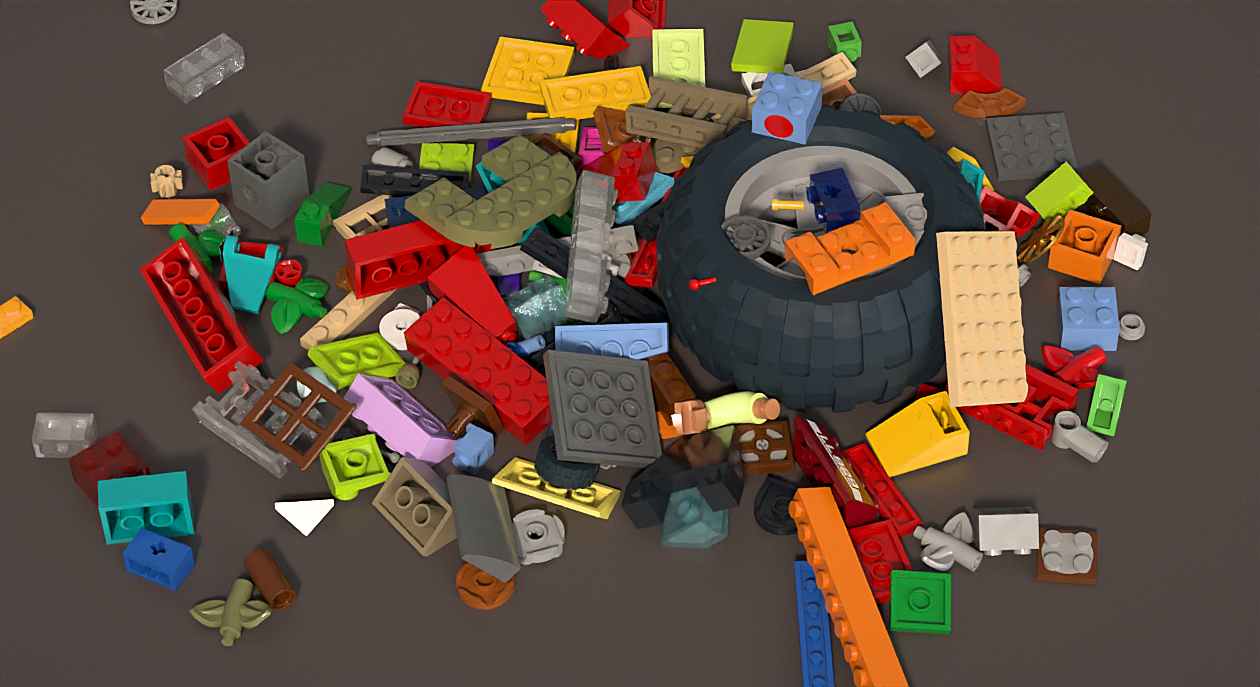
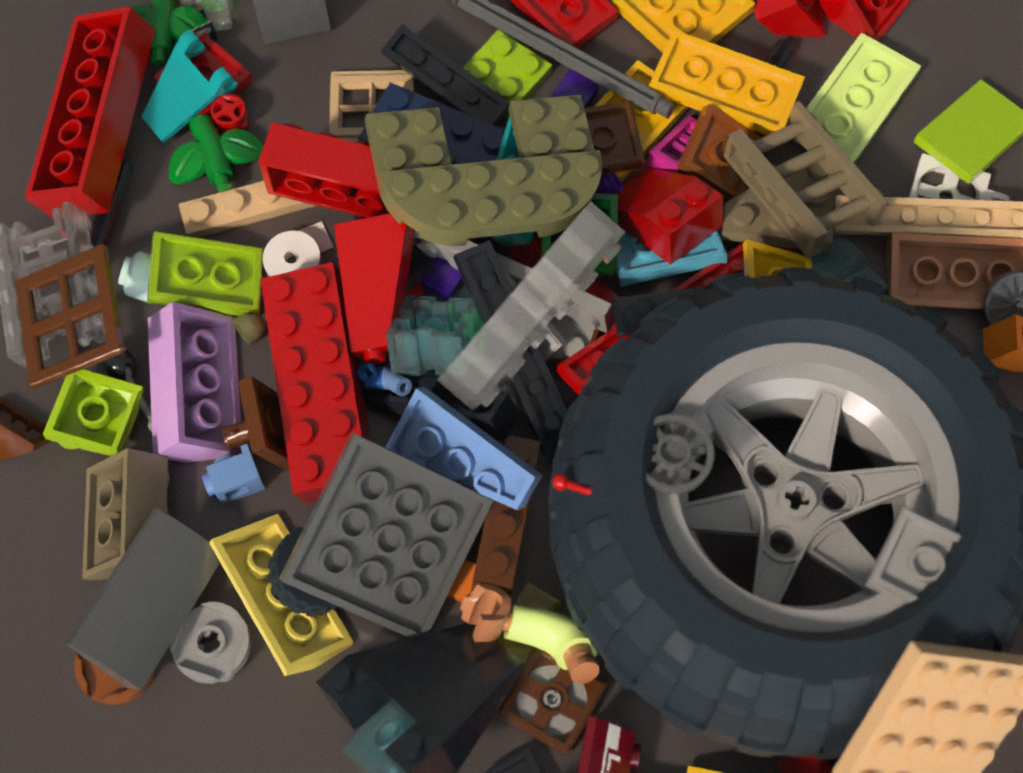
camera: 35 degrees right, 20 degrees up
(318, 212) = (317, 53): green slope -> none
(390, 158) = (444, 35): light grey brick -> none
(780, 204) = (764, 439): yellow piece -> none
(786, 107) = (866, 297): medium blue brick -> none
(832, 199) = (833, 467): clear blue brick -> none
(876, 238) = (832, 577): orange piece -> none

